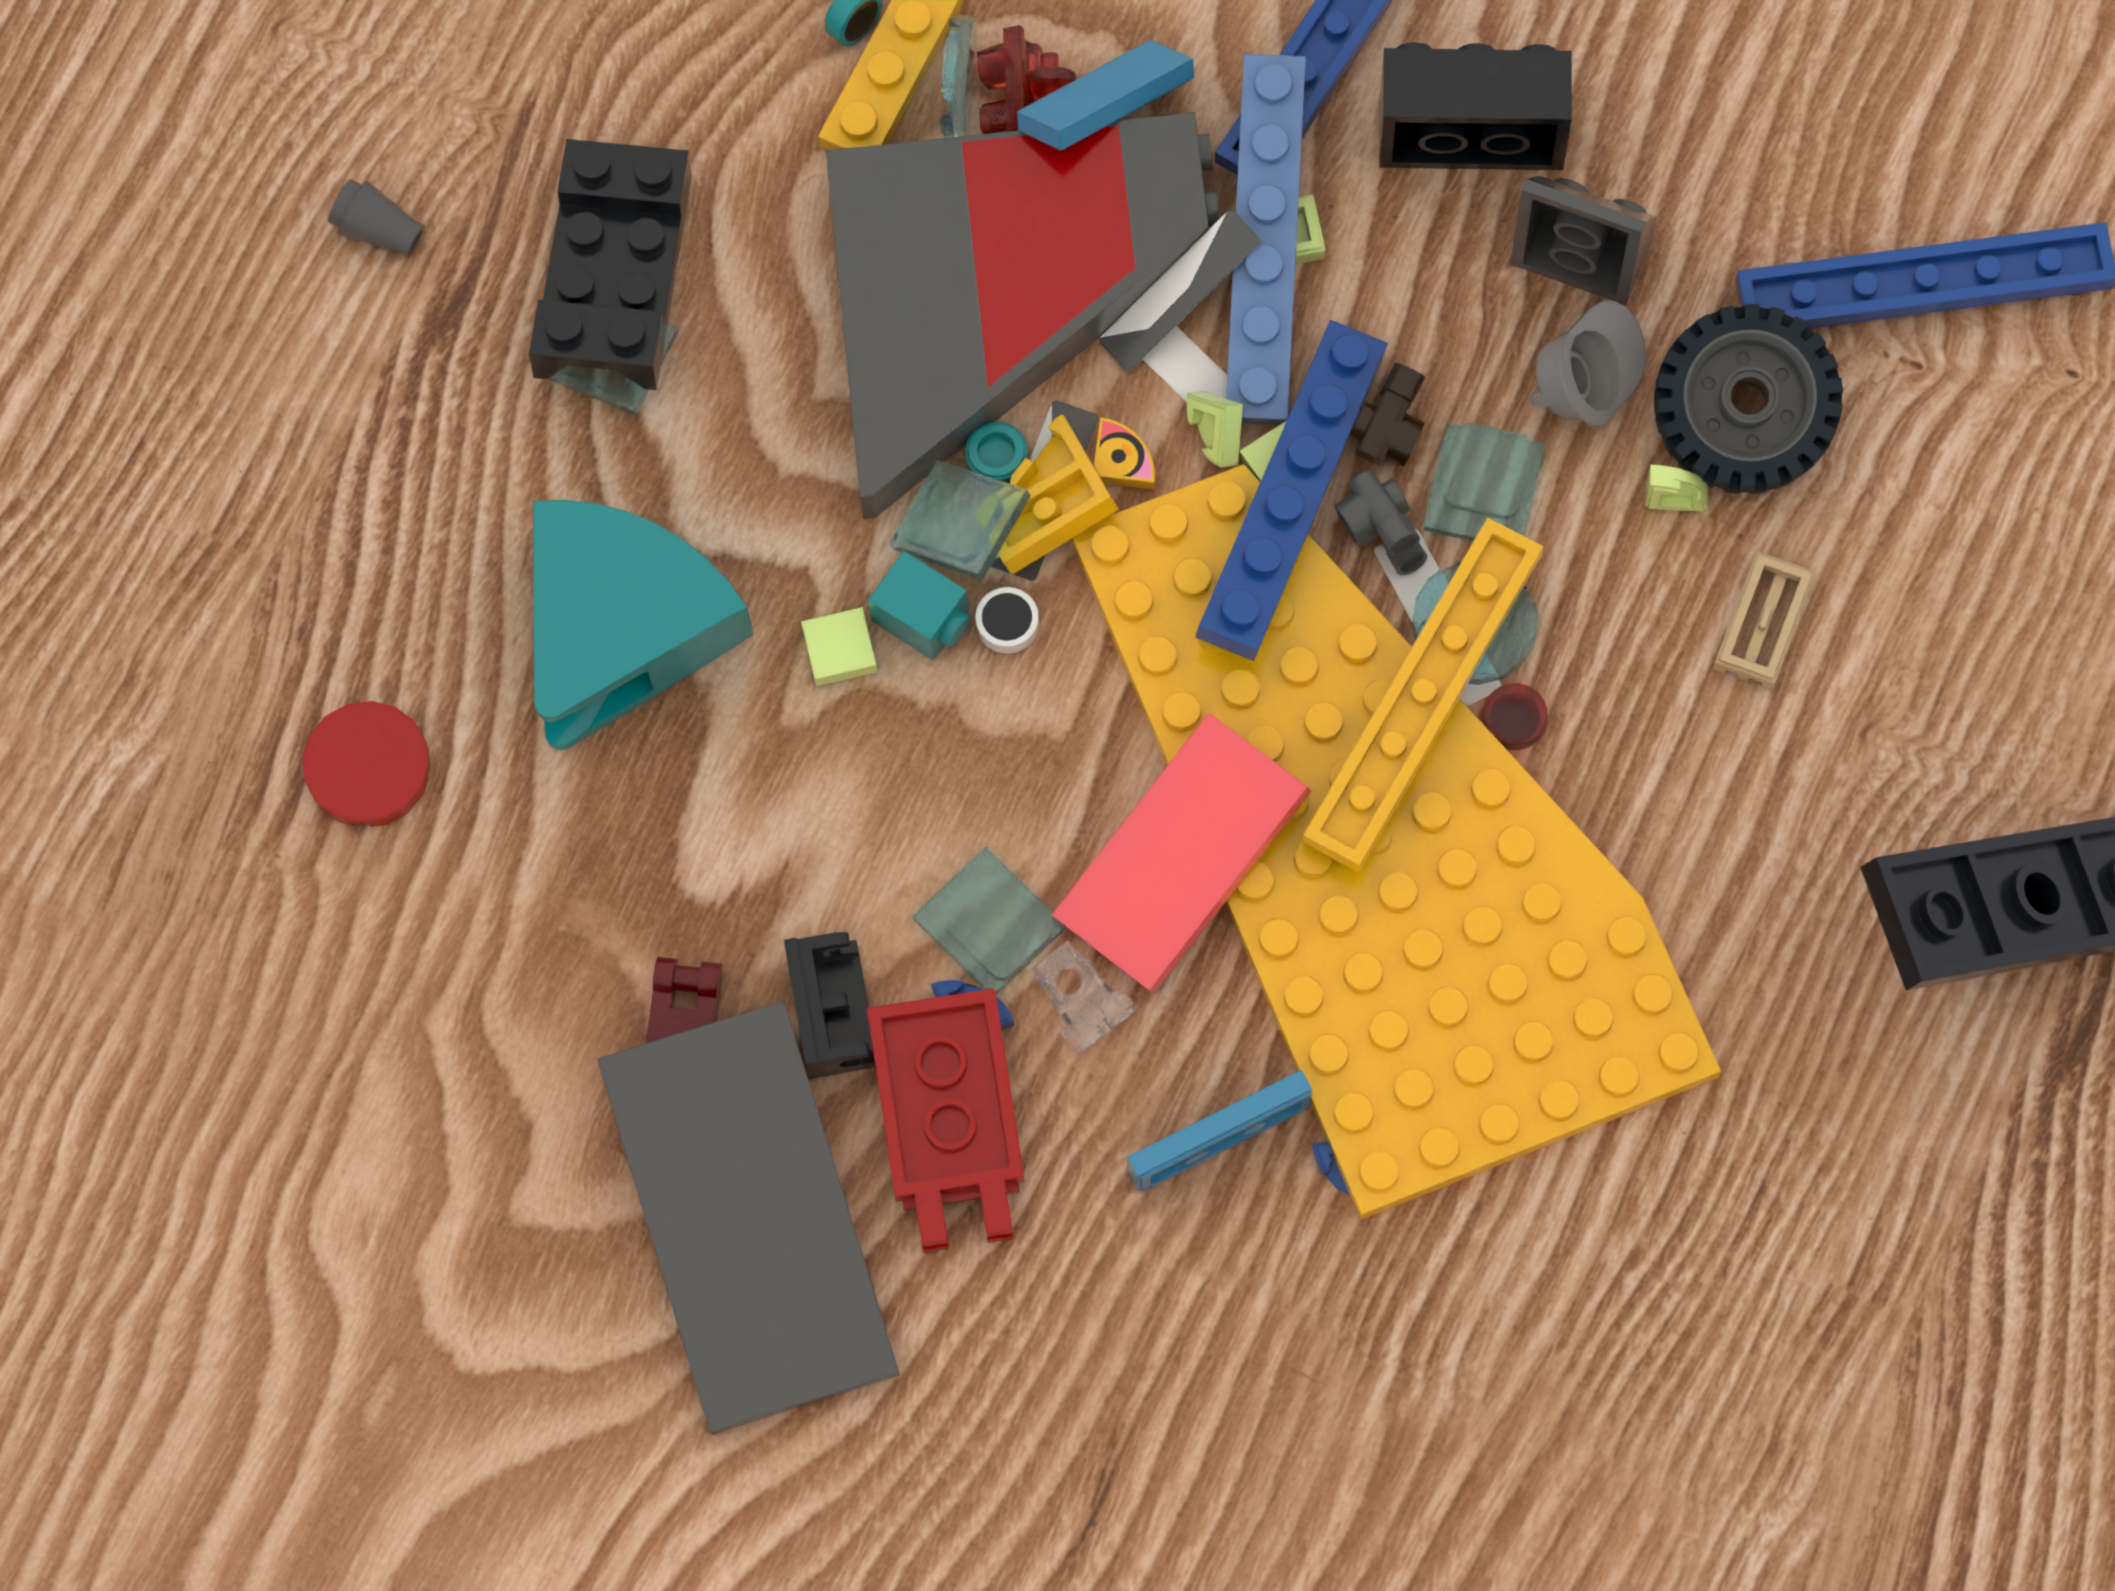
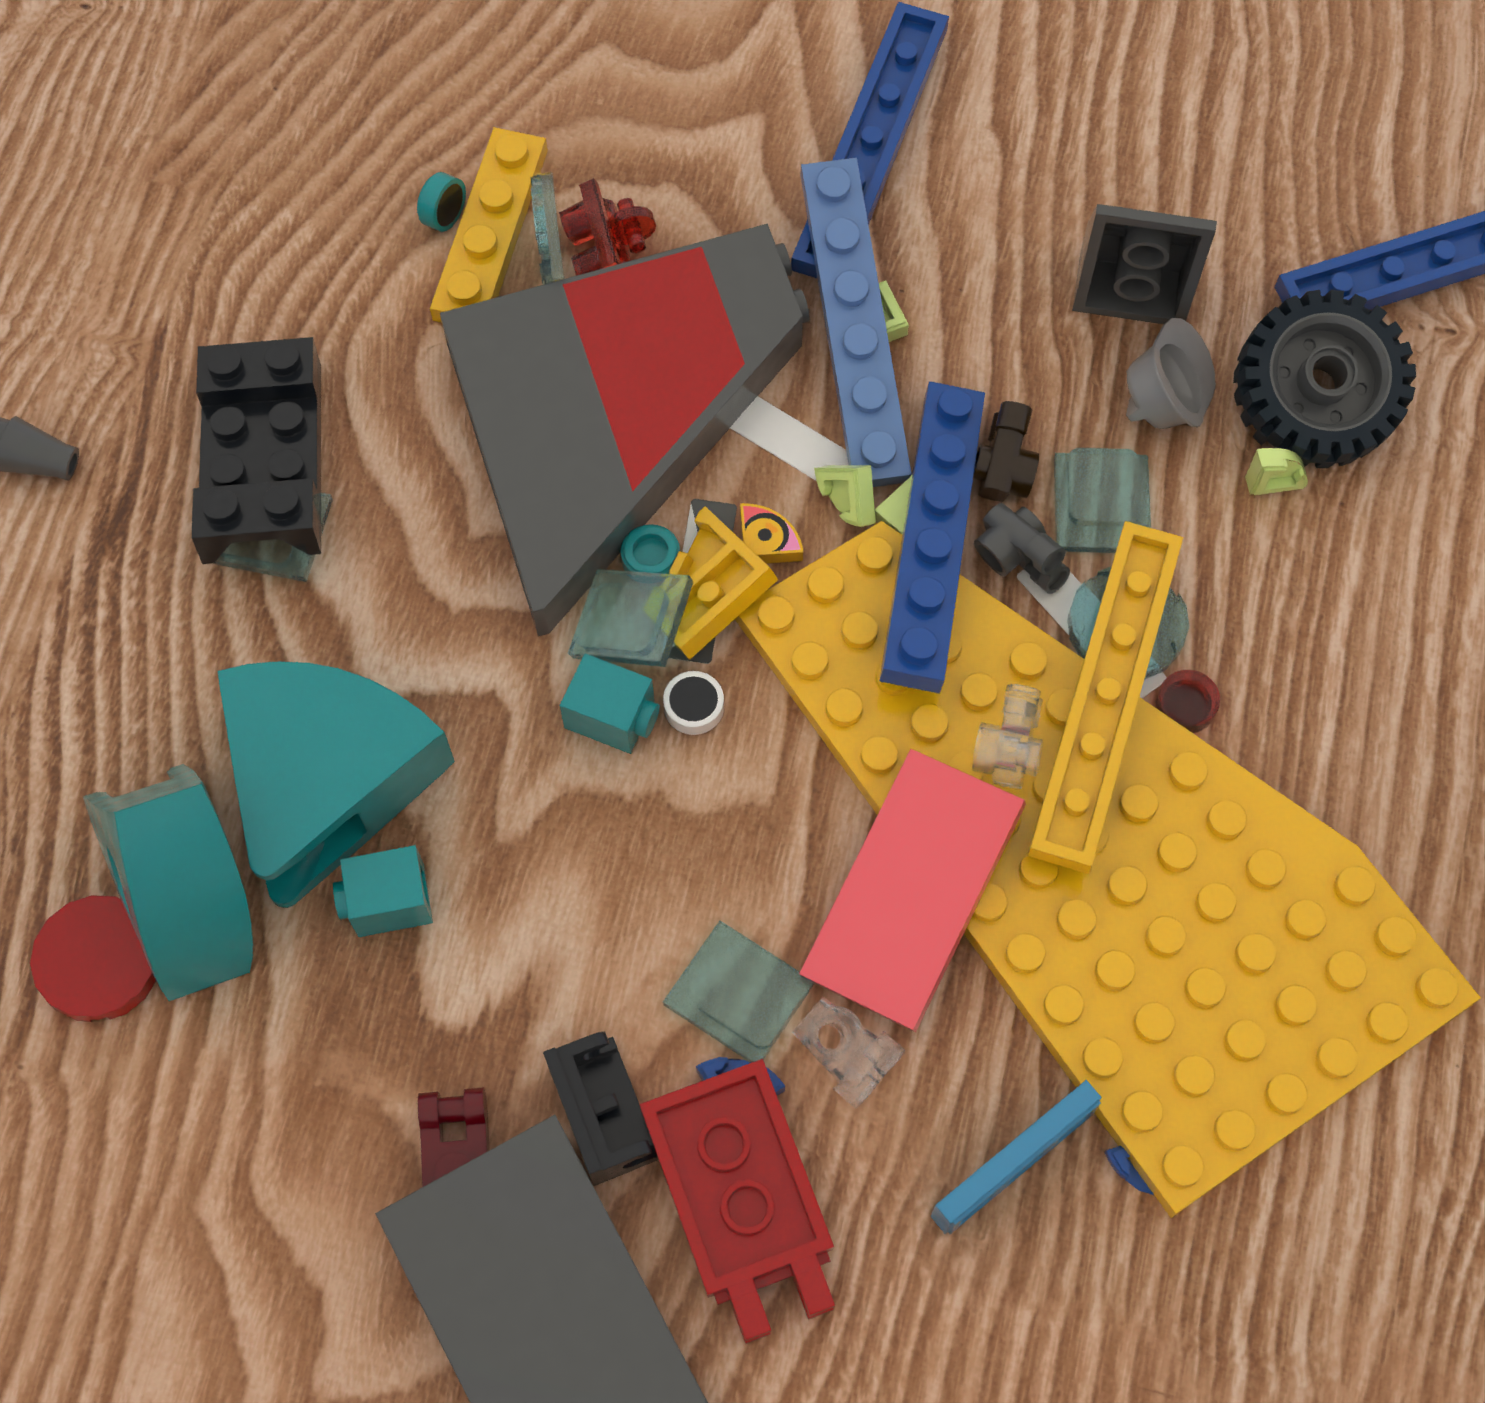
camera: 15 degrees left, 5 degrees down
(459, 702) = (176, 881): none -> teal piece
(658, 753) = (383, 891): none -> teal brick
(839, 646) = (539, 757): yellowish green tile -> none
(1105, 95) = (682, 224): dark azure tile -> none
(1179, 290) = (787, 379): dark grey sticker -> none
(1310, 731) = (1010, 749): none -> clear plate
(1475, 107) = (1015, 176): black brick -> none
(1747, 667) = (1384, 615): tan tile -> none

